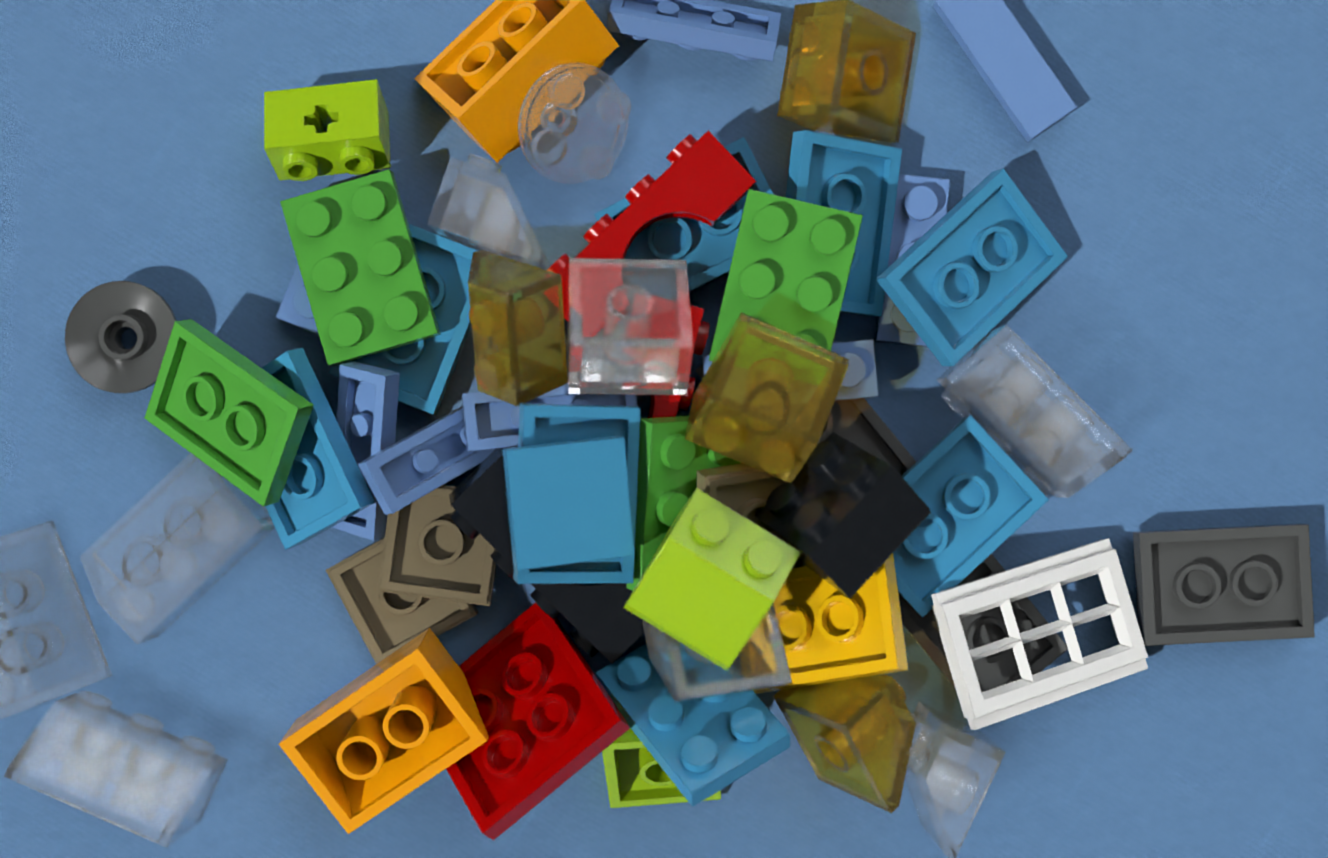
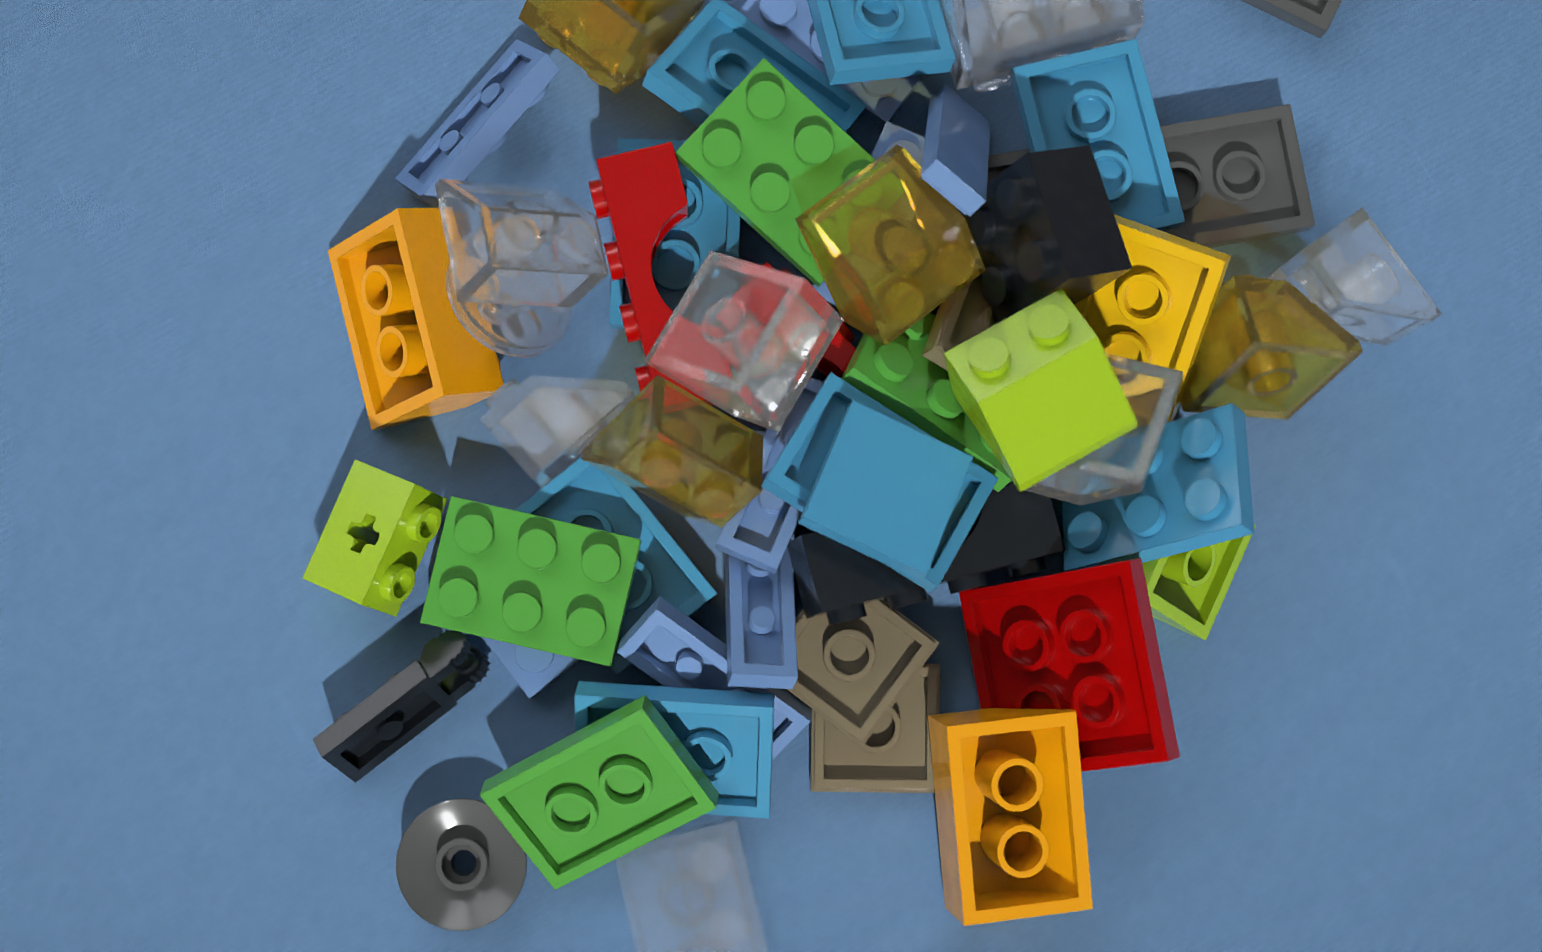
camera: 70 degrees left, 5 degrees down
(214, 224) = (403, 705): none -> black hinge
(612, 107) = (519, 244): none -> clear slope
(875, 407) = (956, 151): none -> medium blue tile
(1057, 682) = (1318, 132): white piece -> none

